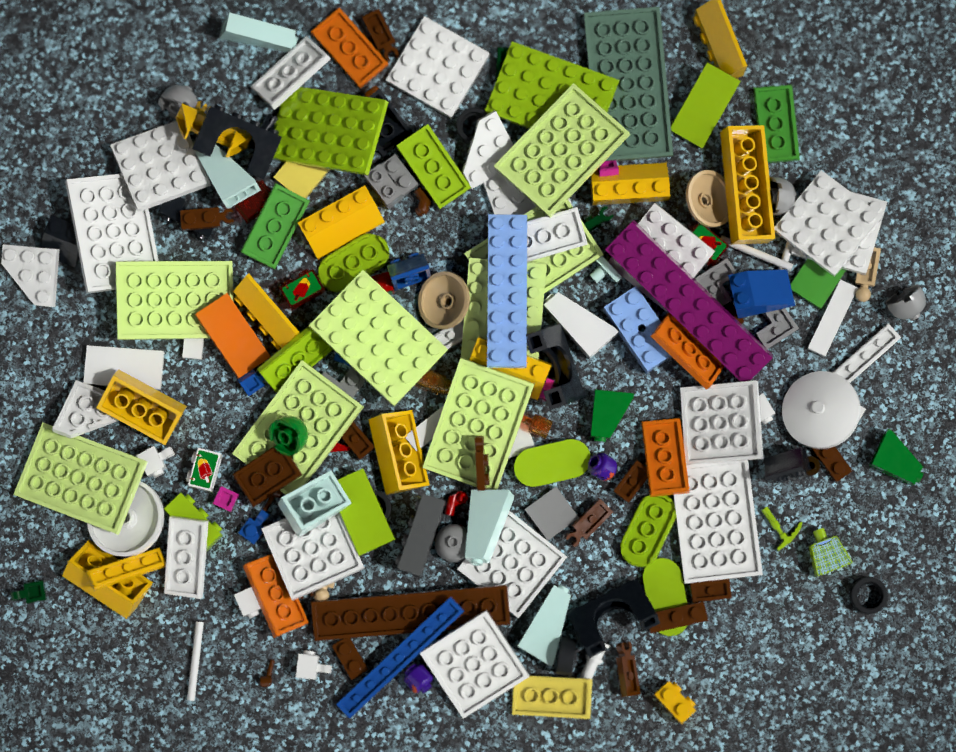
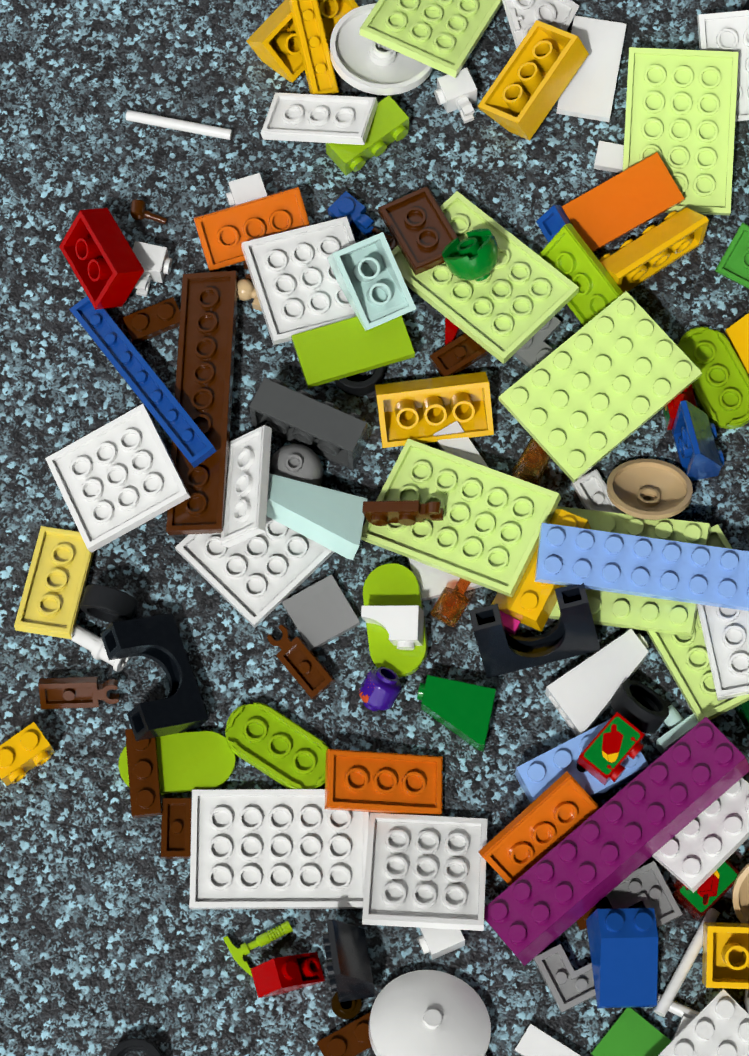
camera: 95 degrees right, 10 degrees down
(204, 470) = (437, 155): brick -> none
(225, 499) = (394, 179): dark pink plate -> none
(302, 289) = (682, 301): brick -> none
(313, 698) = (101, 258): none -> red brick
(418, 678) = (109, 403): dark purple head -> none
(455, 500) = (355, 478): red arm -> none
(474, 571) = (247, 486): none -> white tile
(545, 630) = (159, 586): light aqua slope -> none
(558, 456) = (401, 621): none -> white arch
(602, 300) = (640, 706): none -> black tyre
(631, 308) = (611, 749): none -> brick
(632, 482) = (352, 730): reddish brown plate -> none
(797, 505) = (287, 974): none -> red slope
(827, 553) = (207, 1012): lime torso -> none

